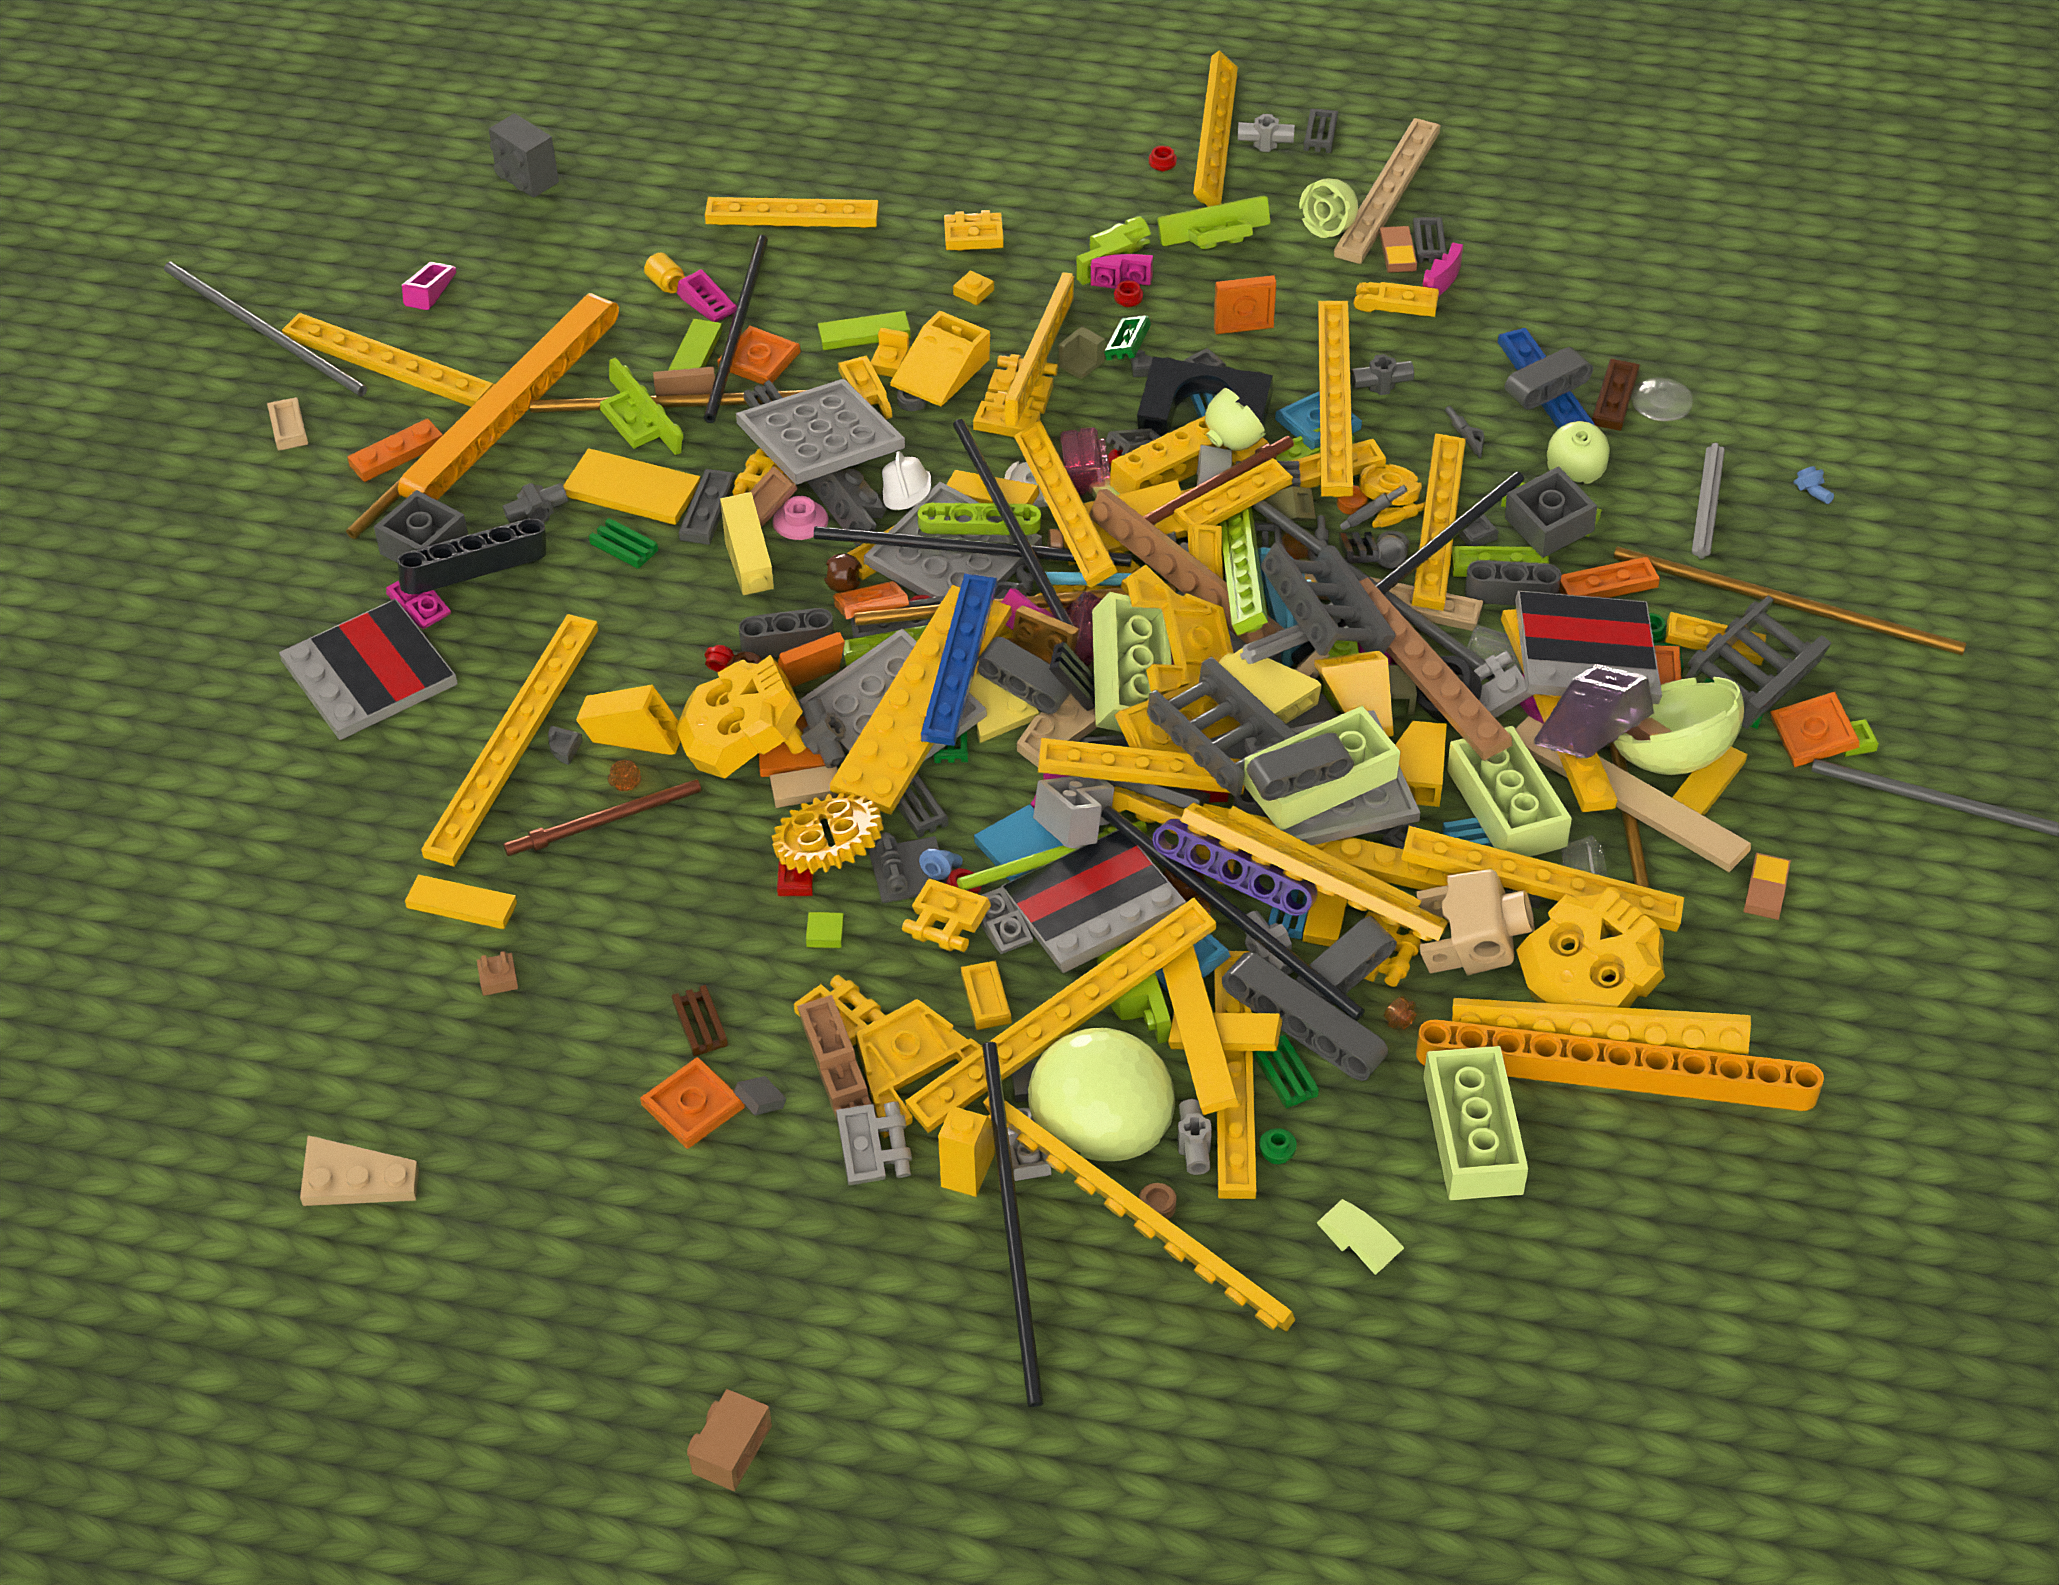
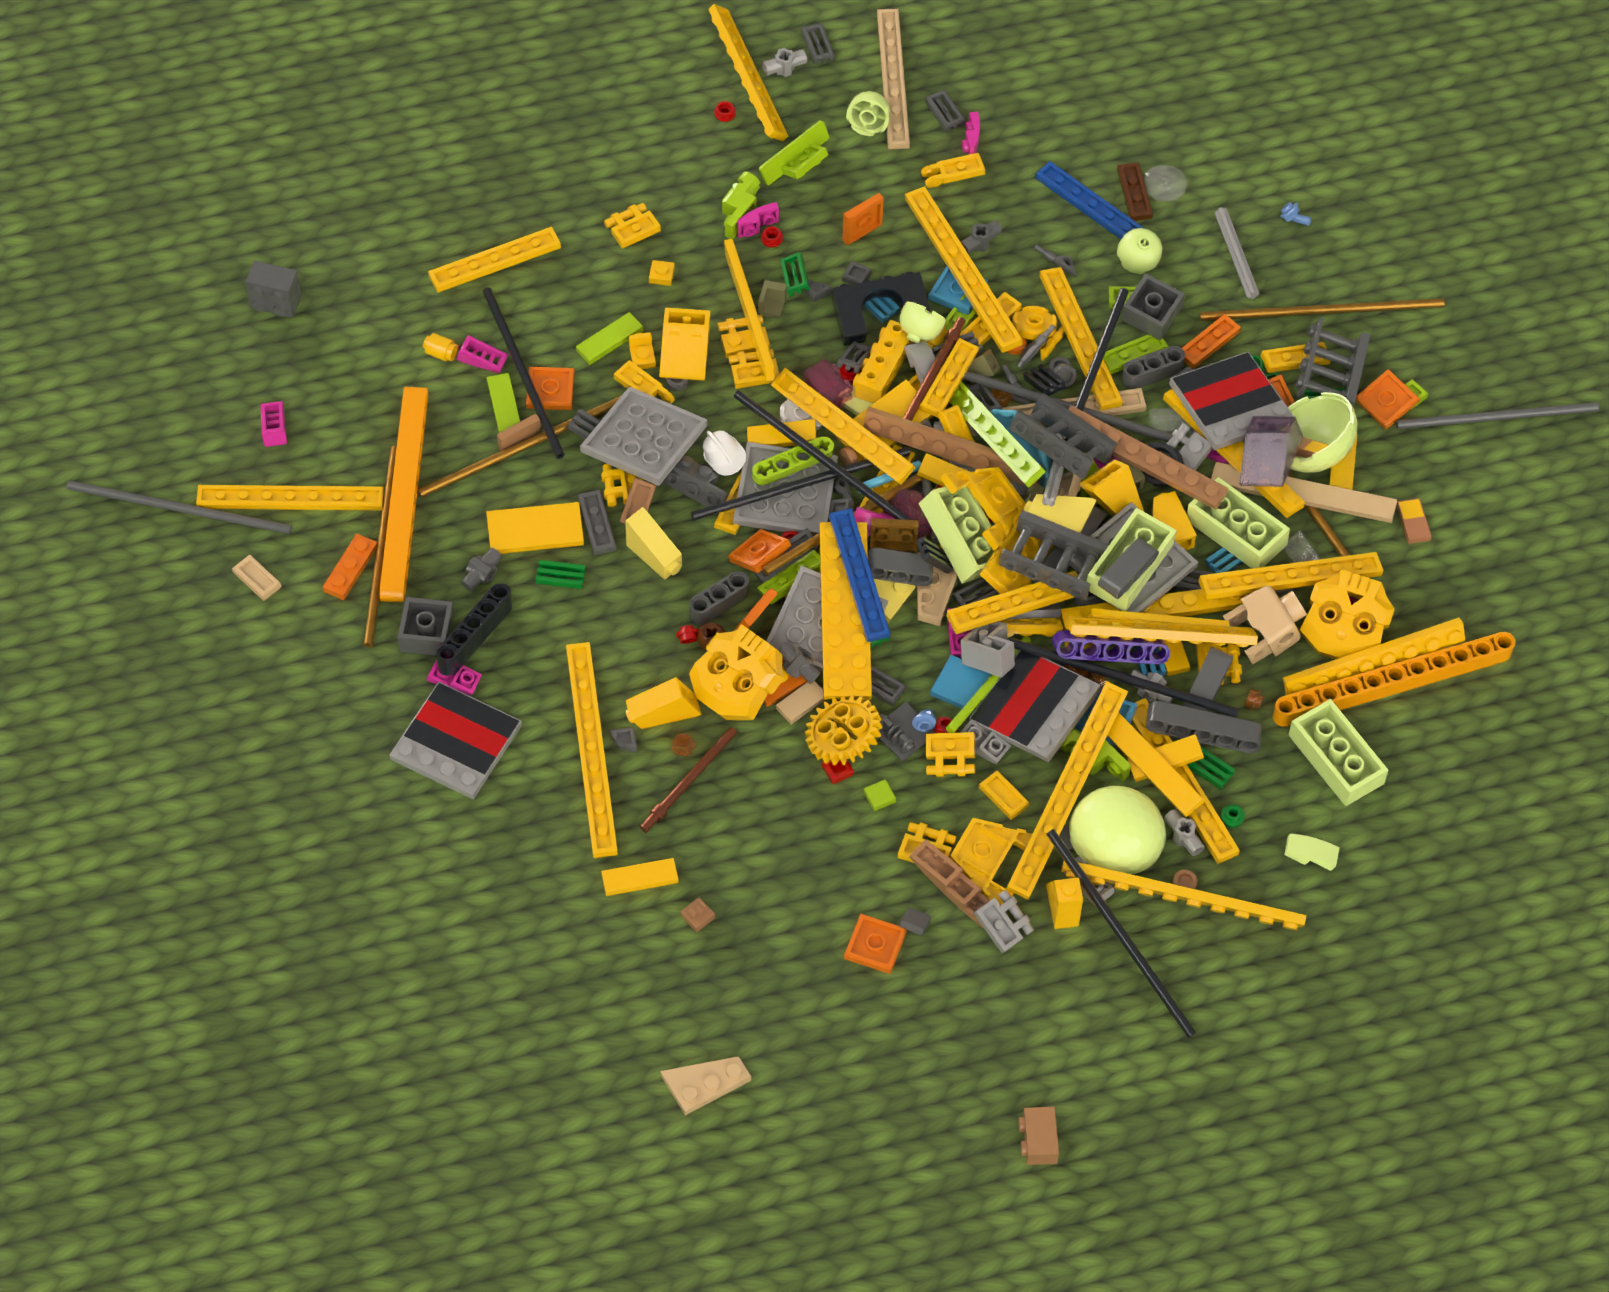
camera: 30 degrees left, 10 degrees up
(636, 413) = (503, 470): lime bracket -> none
(691, 999) = (829, 876): reddish brown tile -> none
(799, 517) = (668, 512): bright pink piece -> none
(843, 572) = (727, 540): reddish brown piece -> none
(1398, 249) = (929, 127): nougat tile -> none
(1479, 532) = (1098, 332): dark grey tile -> none
(1548, 378) = (1092, 199): dark grey beam -> none

